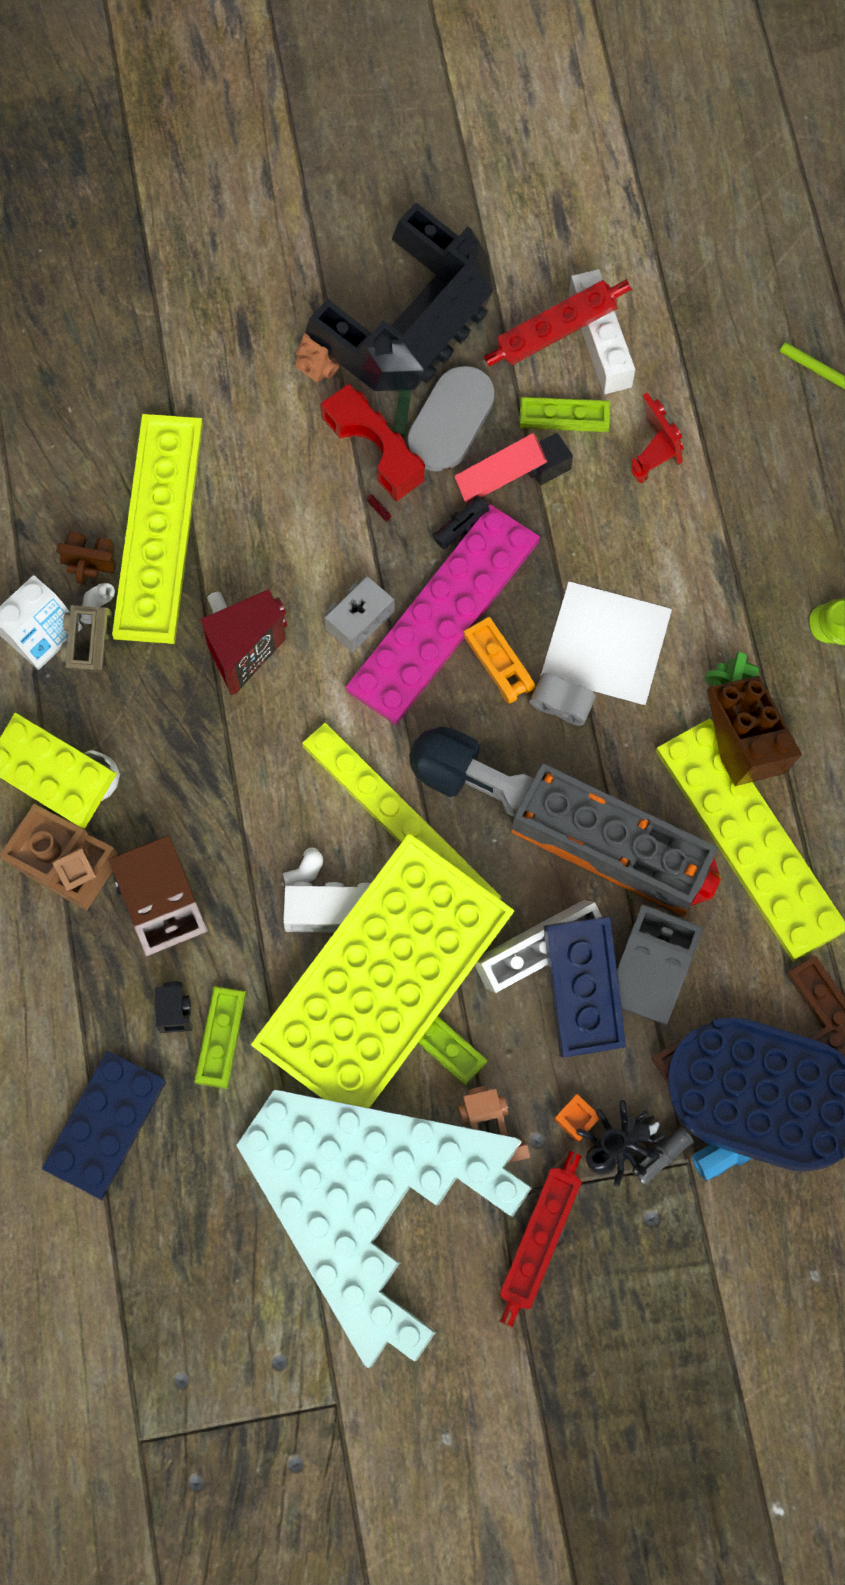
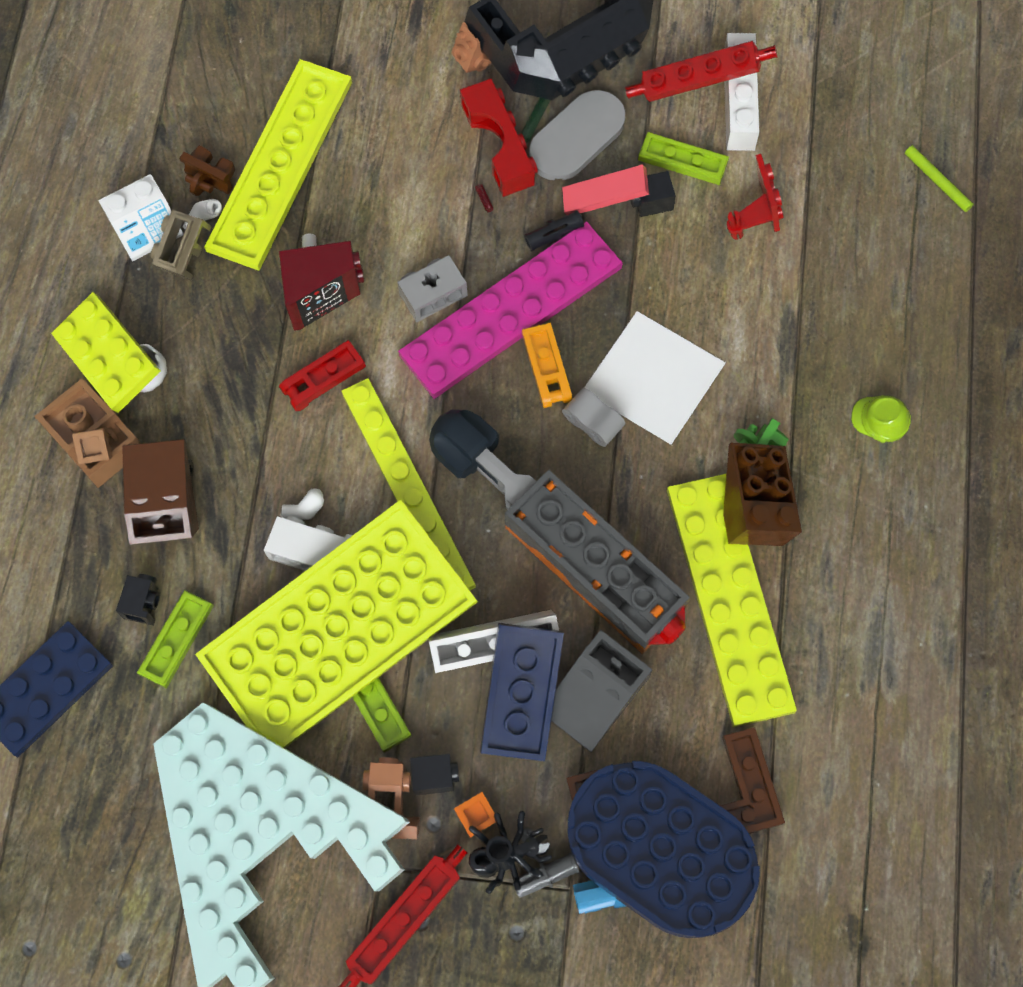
camera: 20 degrees right, 0 degrees up
(278, 732) = (322, 375): none -> red plate
(524, 1091) = (433, 774): none -> black brick

